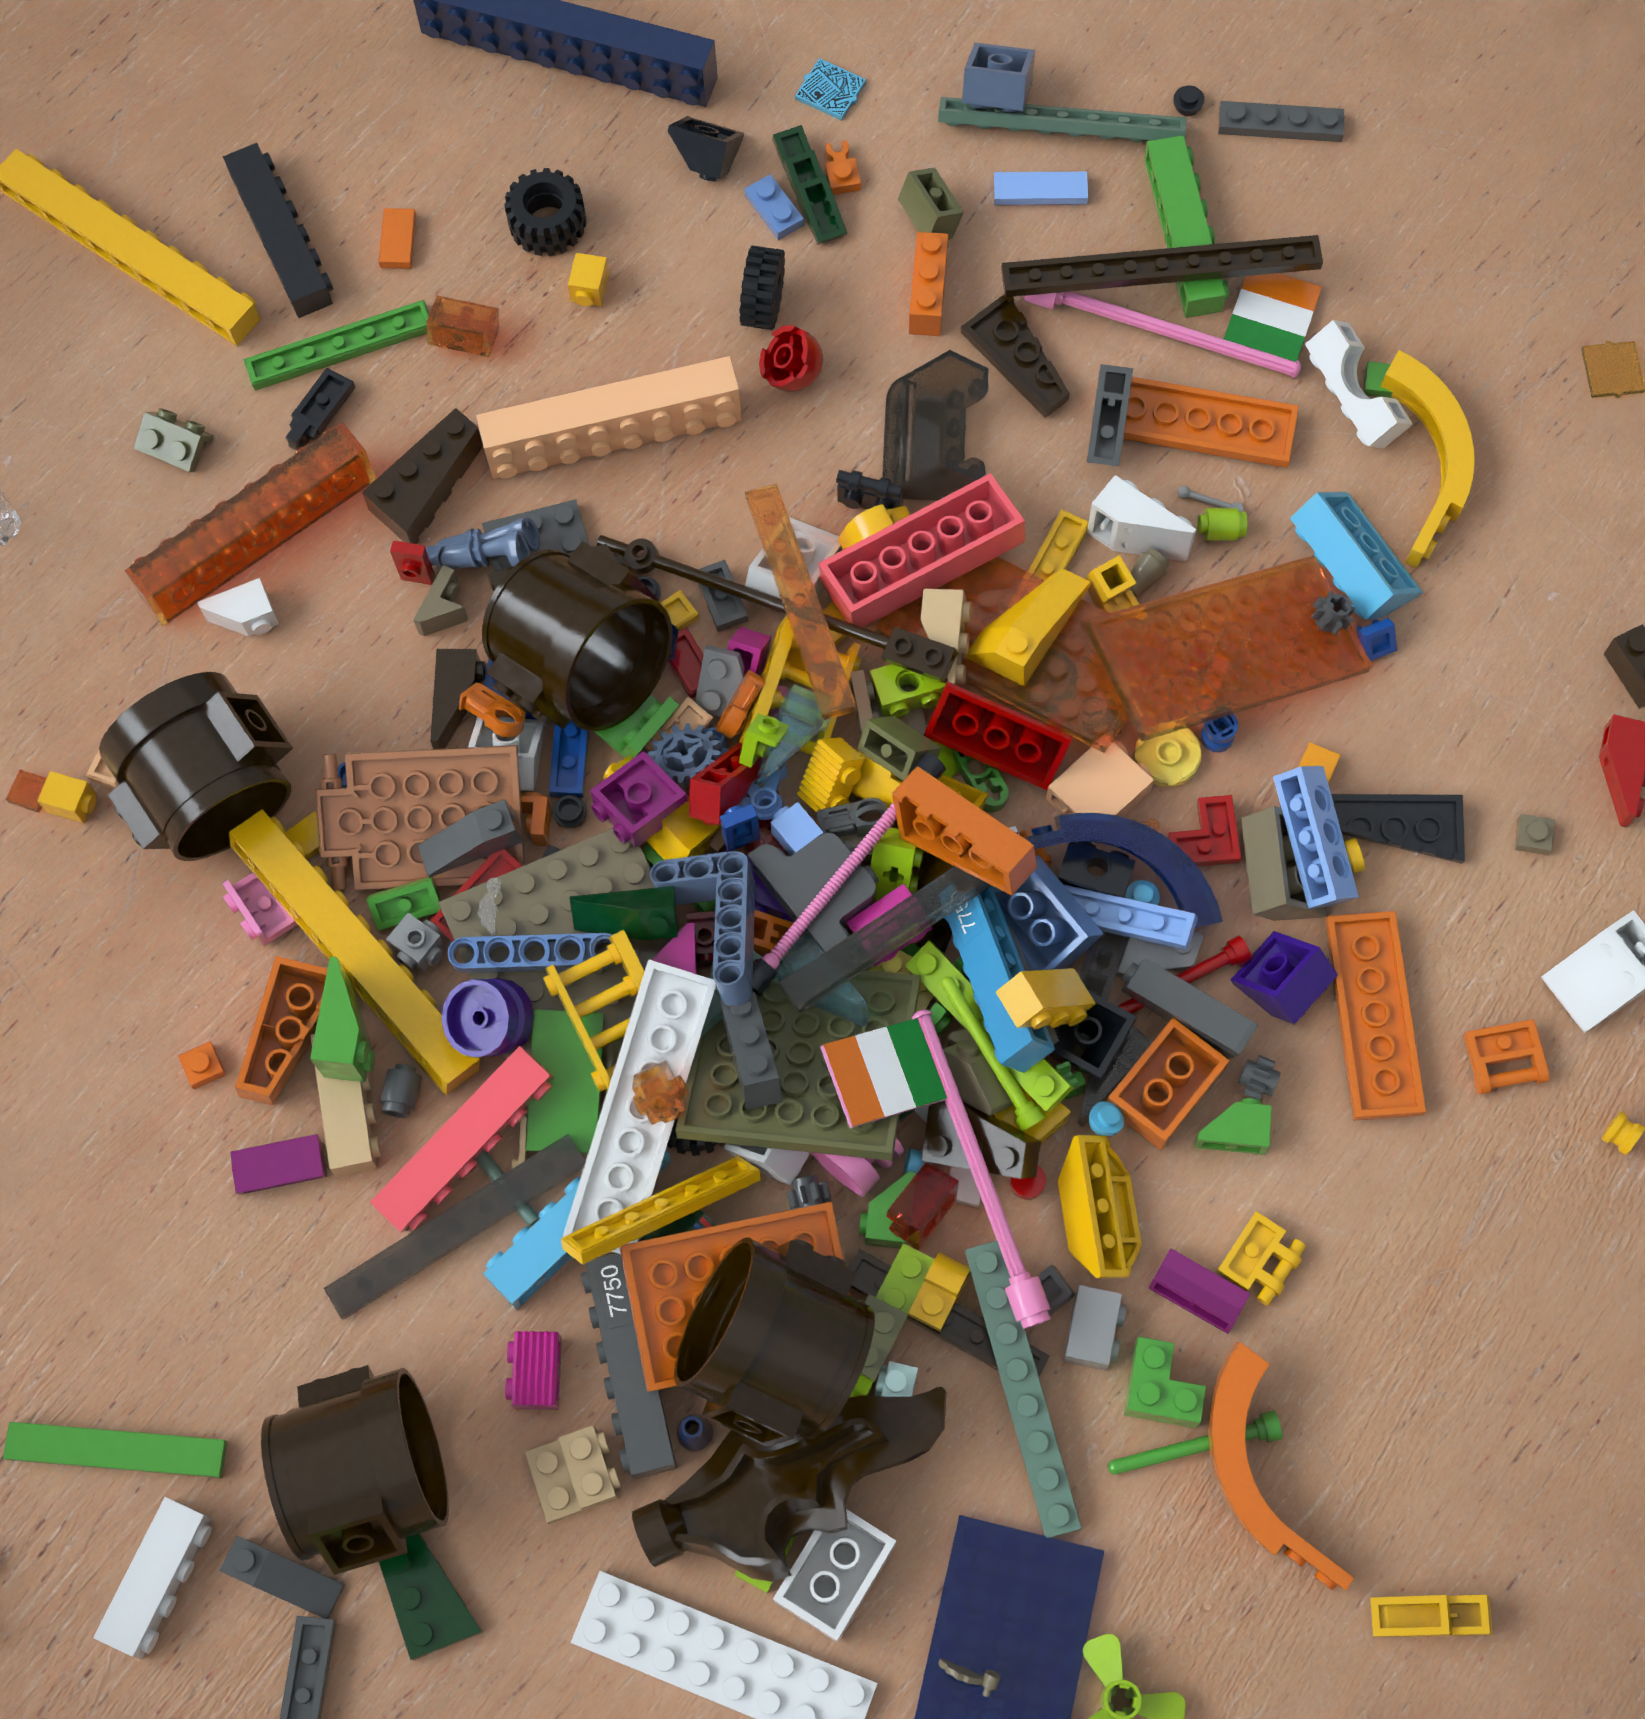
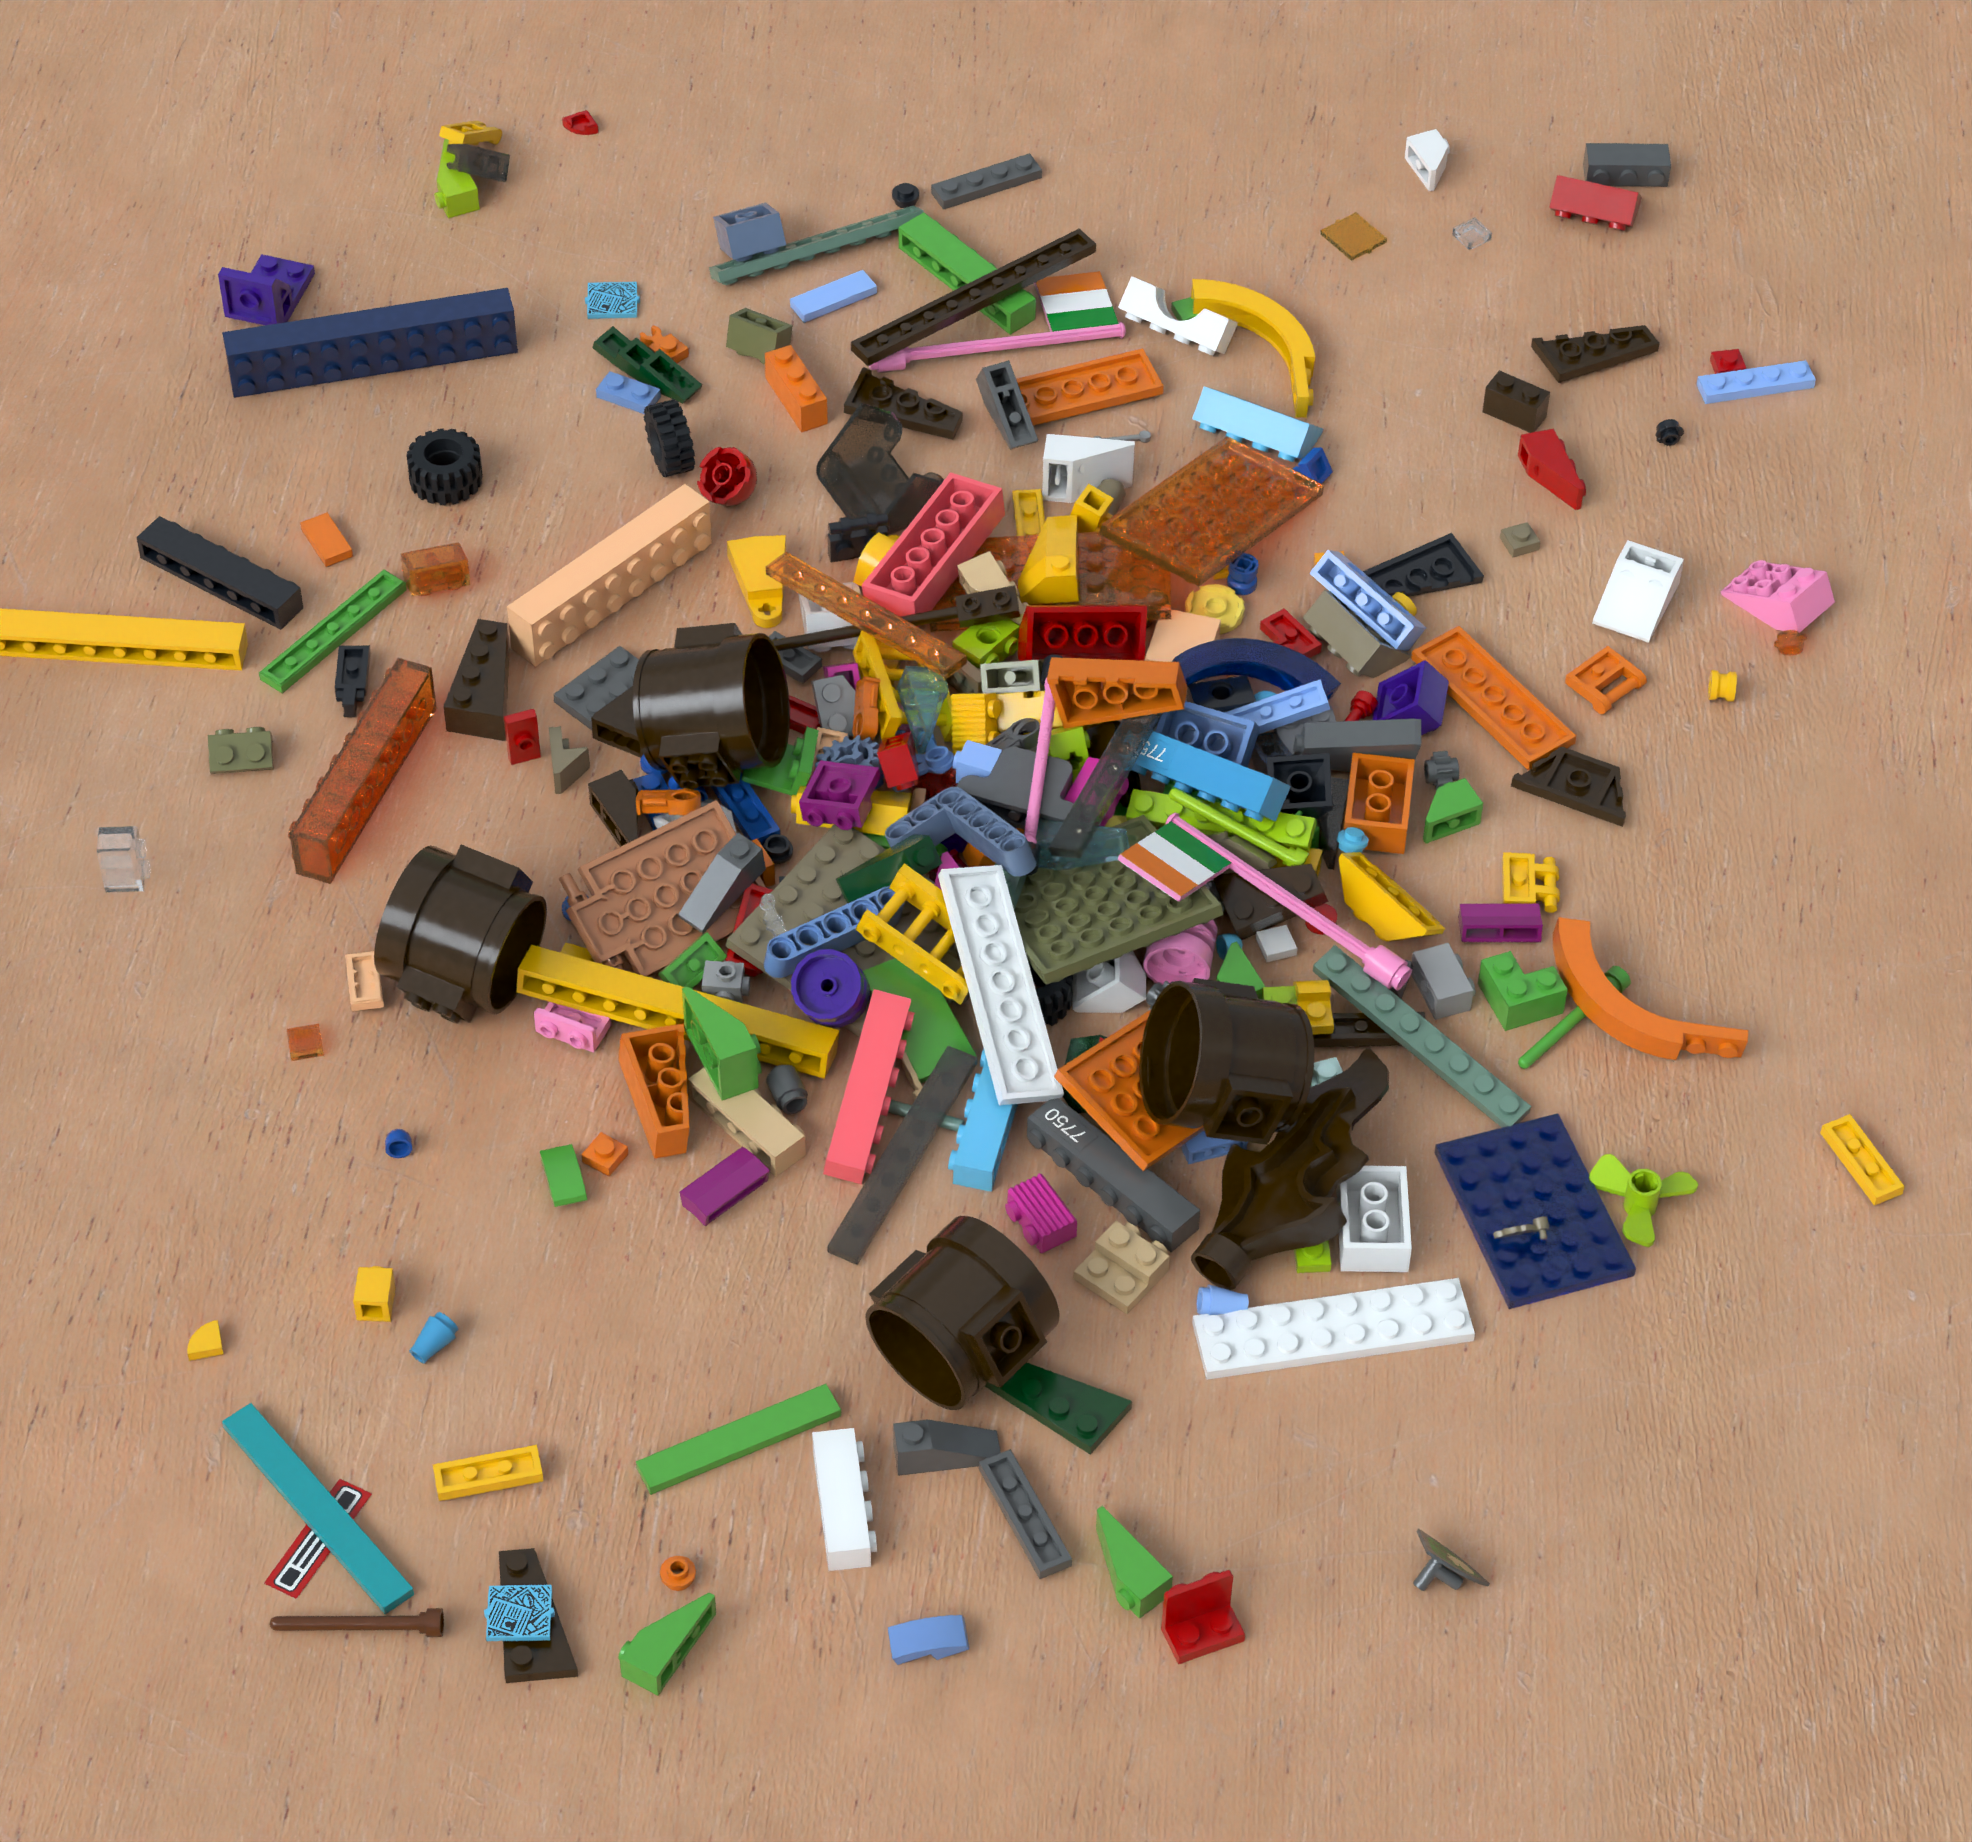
camera: 35 degrees left, 20 degrees down
(33, 949) = (398, 1143): none -> blue hinge
(67, 797) = (347, 1026): yellow brick -> none
(147, 1069) = (563, 1175): none -> bright green slope
(241, 609) = (395, 836): white slope -> none
(476, 548) = (566, 707): sand blue piece -> none
(588, 279) = (515, 498): yellow brick -> none
(635, 1571) = (1217, 1300): none -> light blue cone
(659, 1093) = (1015, 952): clear orange brick -> none
(660, 1209) = (1066, 1042): yellow tile -> none
(701, 1438) = (1196, 1187): dark blue cone -> none
(706, 146) = (545, 373): black slope -> none
(739, 826) = (935, 772): blue plate -> none
(751, 1053) = (1061, 900): dark grey brick -> none
(759, 465) = (749, 563): none -> yellow piece
(759, 736) = (907, 715): lime bracket -> none
(922, 1205) = (1259, 952): clear red hinge -> none
(1046, 998) = (1260, 755): yellow brick -> none
(1222, 524) = (1148, 445): lime brick -> none
(1333, 612) = (1272, 458): dark grey gear -> none
(1390, 1167) = (1577, 784): none -> dark brown wing
(1431, 1616) = (1819, 1034): yellow slope -> none

